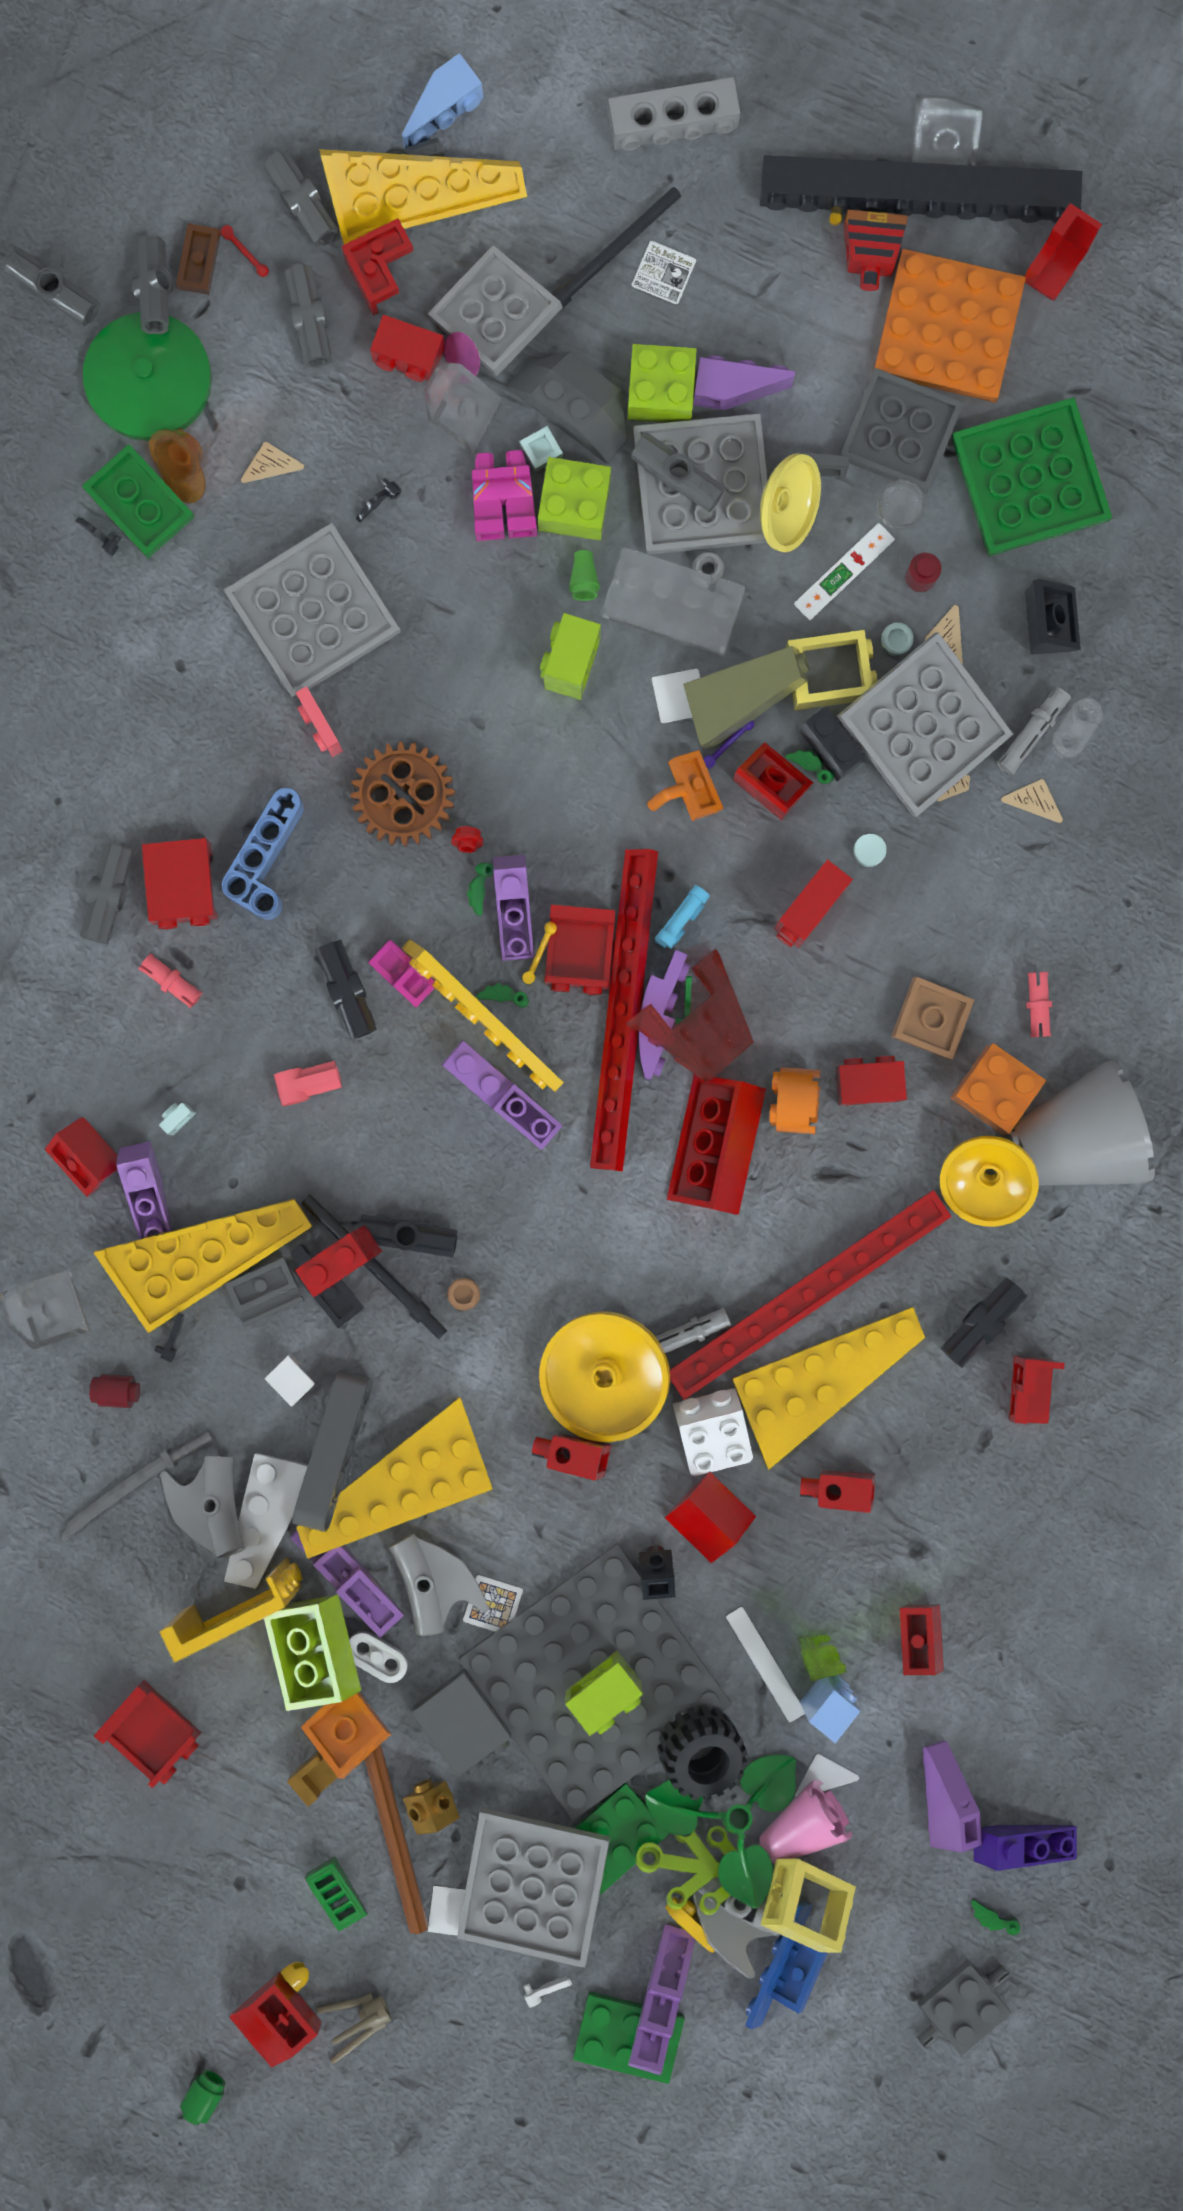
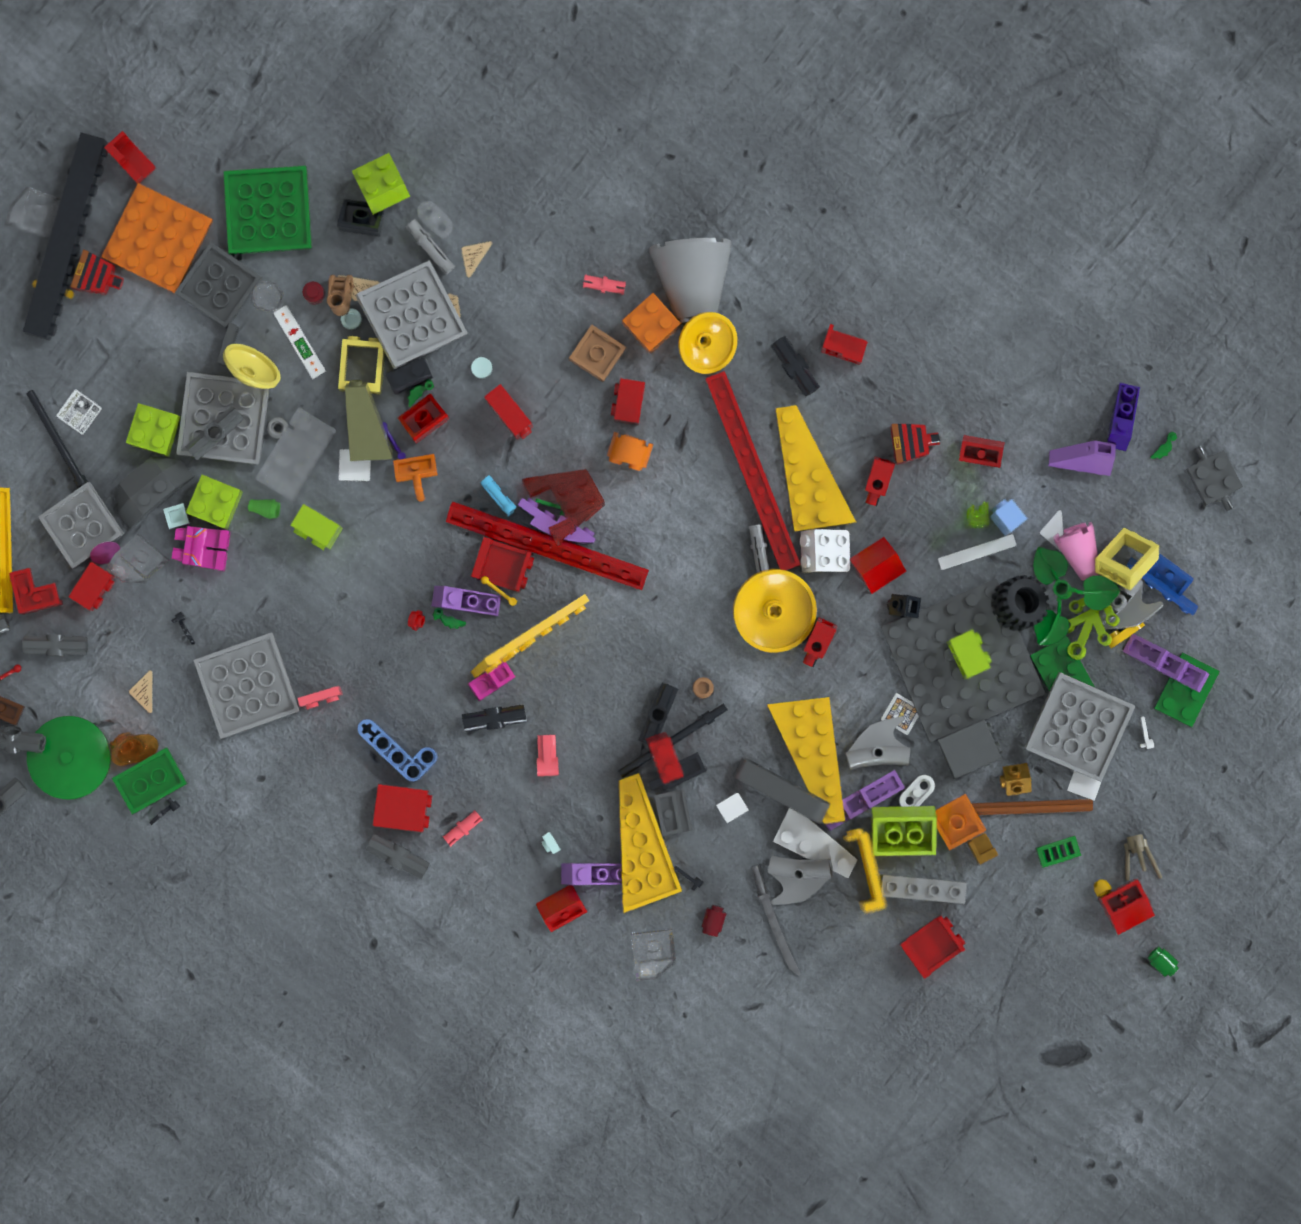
camera: 70 degrees left, 0 degrees up
(232, 1703) = (923, 889): none -> light grey brick
(383, 814) = (367, 638): dark orange gear -> none
(501, 1095) = (583, 635): medium lavender slope -> none
(504, 993) = (518, 621): green piece -> none
(716, 1144) = (645, 507): red slope -> none
(731, 384) = (163, 386): medium lavender slope -> none
(910, 1526) = (911, 442): none -> torso
(935, 612) = (340, 290): none -> medium nougat piece
(1112, 632) = (381, 183): none -> lime brick

